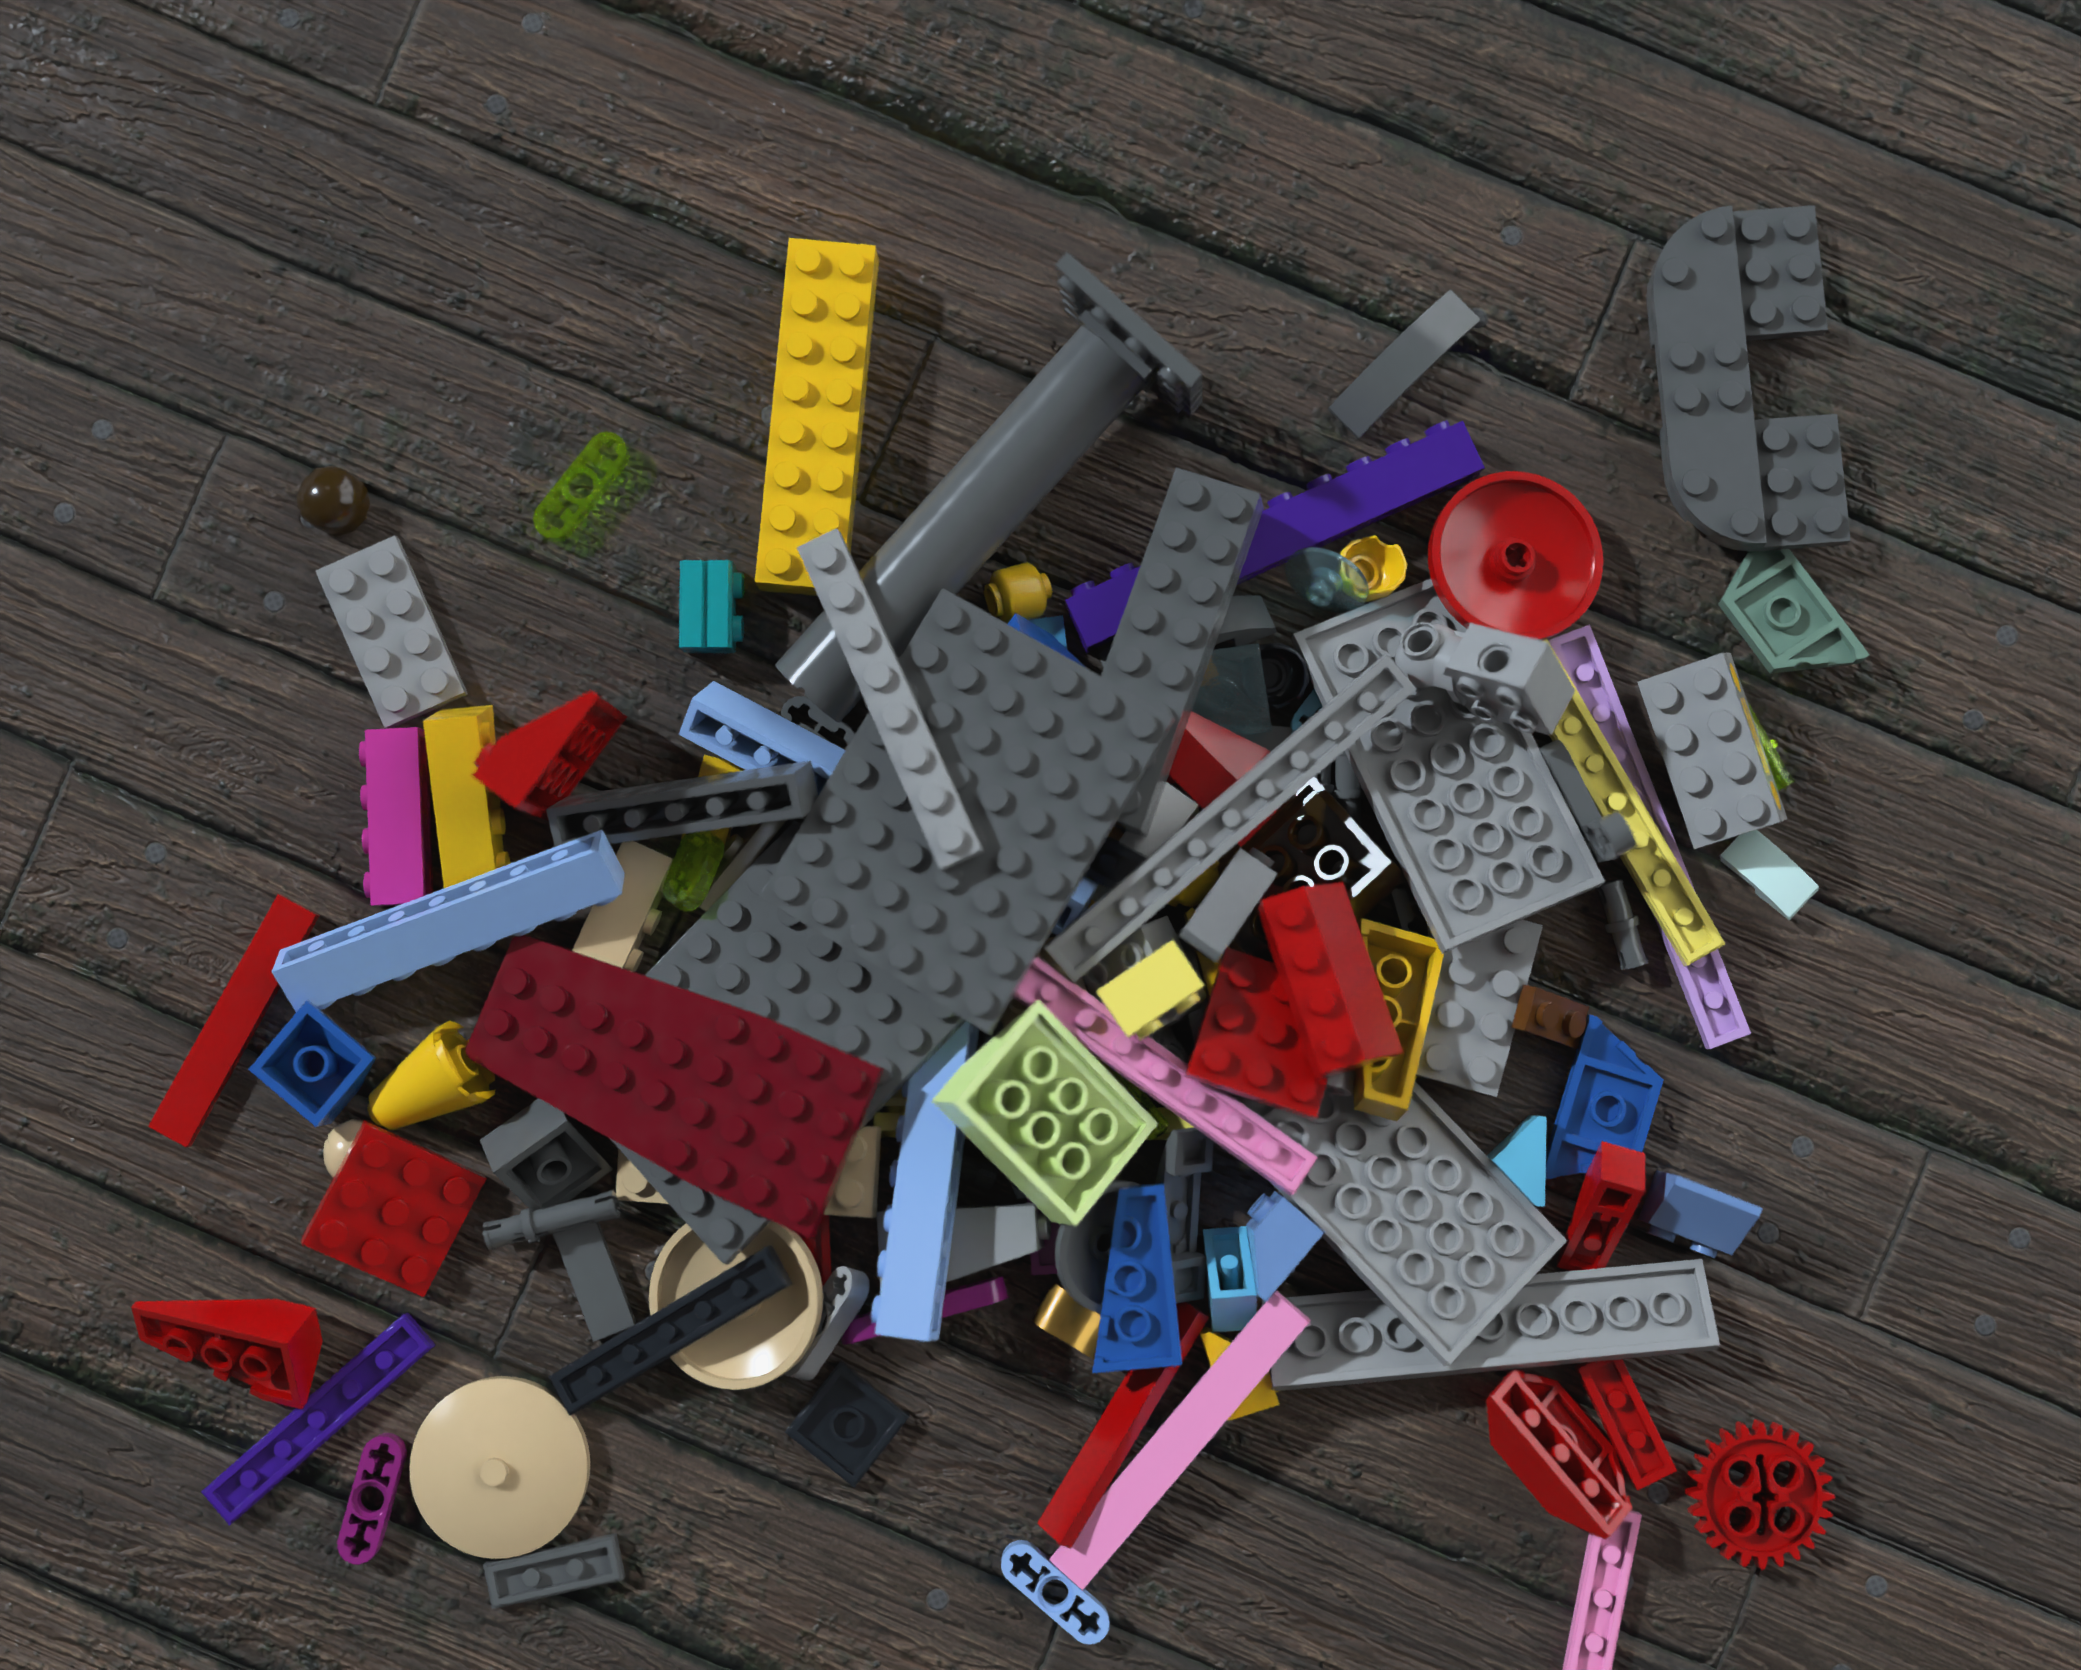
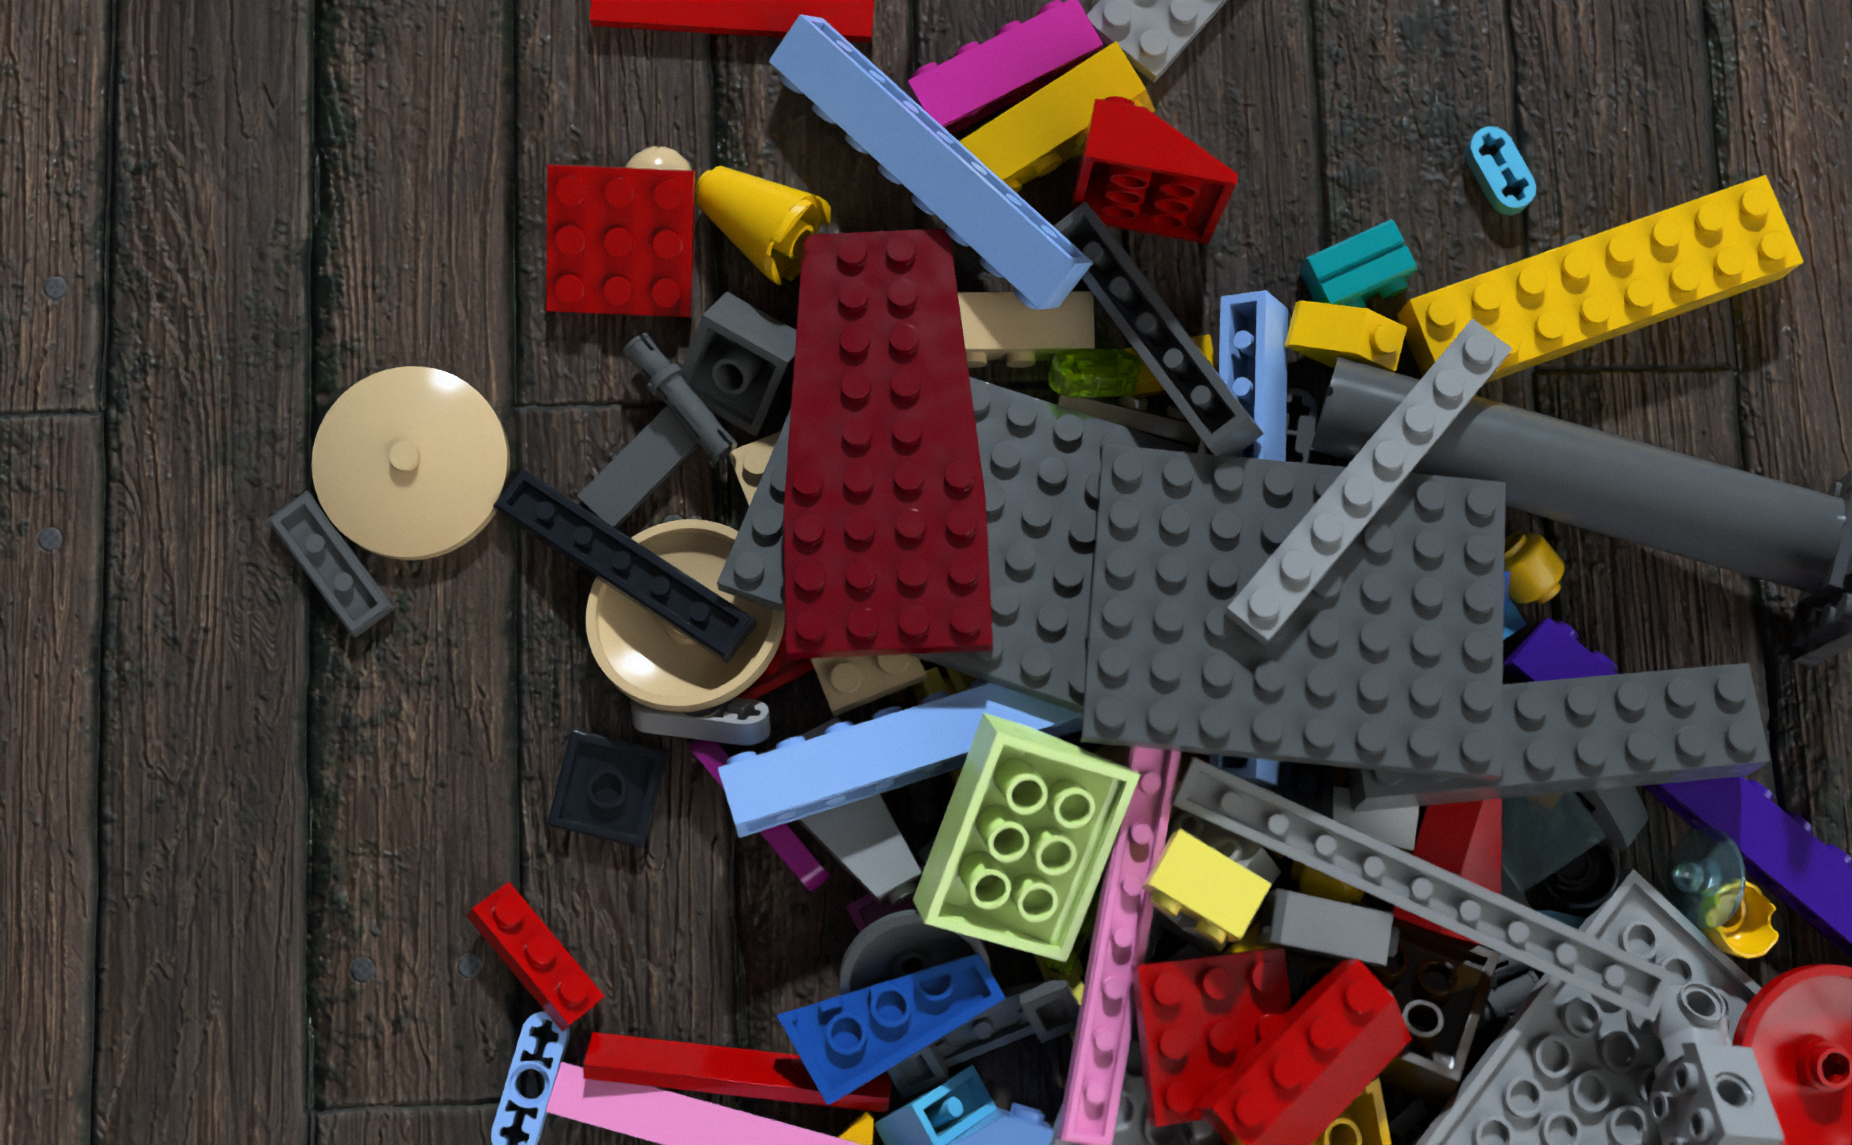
camera: 60 degrees right, 5 degrees down
(253, 1340) = (430, 170): red wedge -> none
(314, 1065) = (726, 99): blue slope -> none
(320, 1418) = (382, 266): dark purple tile -> none
(374, 1532) = (292, 370): magenta beam -> none
(578, 468) = (1441, 116): clear neon green beam -> none
(680, 435) = (1503, 169): none -> medium azure beam
(758, 647) = (1345, 332): none -> yellow slope
(955, 1543) = (535, 956): none -> red plate
(1068, 1320) = (817, 966): pearl gold axle -> none

